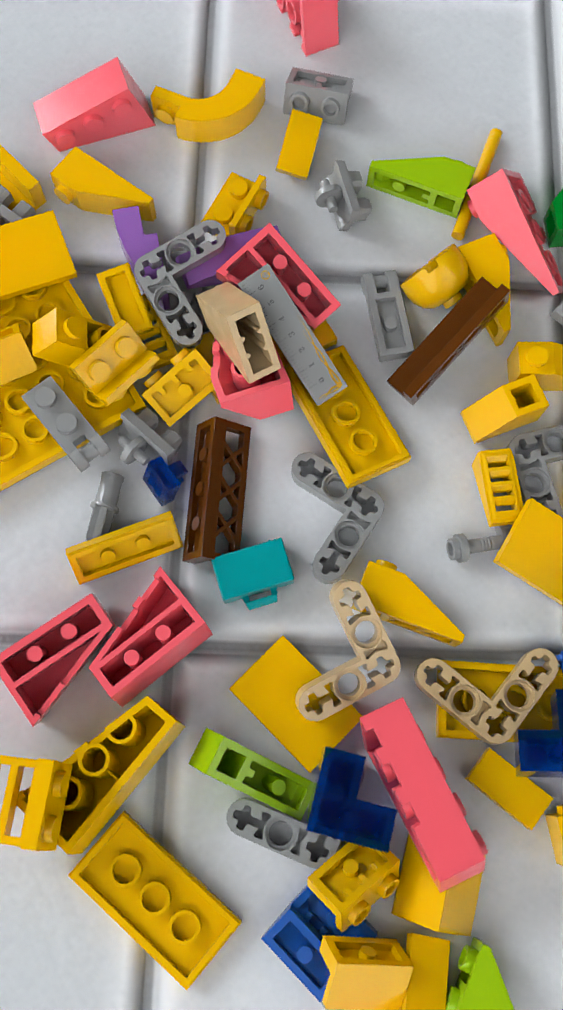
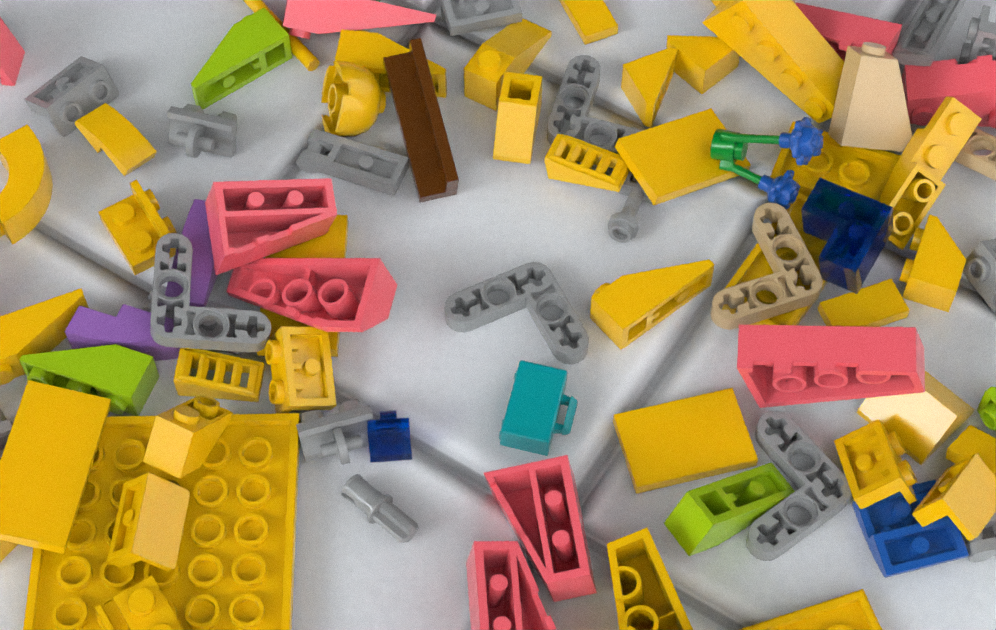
camera: 55 degrees left, 15 degrees down
(65, 423) = (270, 492): light grey plate -> none
(93, 247) = (101, 371): none -> lime slope
(114, 363) = (244, 409): yellow bracket -> none
(124, 547) = (435, 509): yellow tile -> none
(125, 298) = (178, 369): yellow tile -> none
(206, 487) = (430, 402): reddish brown fence -> none
(240, 330) = (294, 271): tan slope -> none
(294, 335) = (331, 233): light grey tile -> none
(338, 811) = (803, 435): clear blue brick -> none
(352, 425) = (437, 247): yellow tile -> none
(366, 654) = (676, 347): tan beam -> none

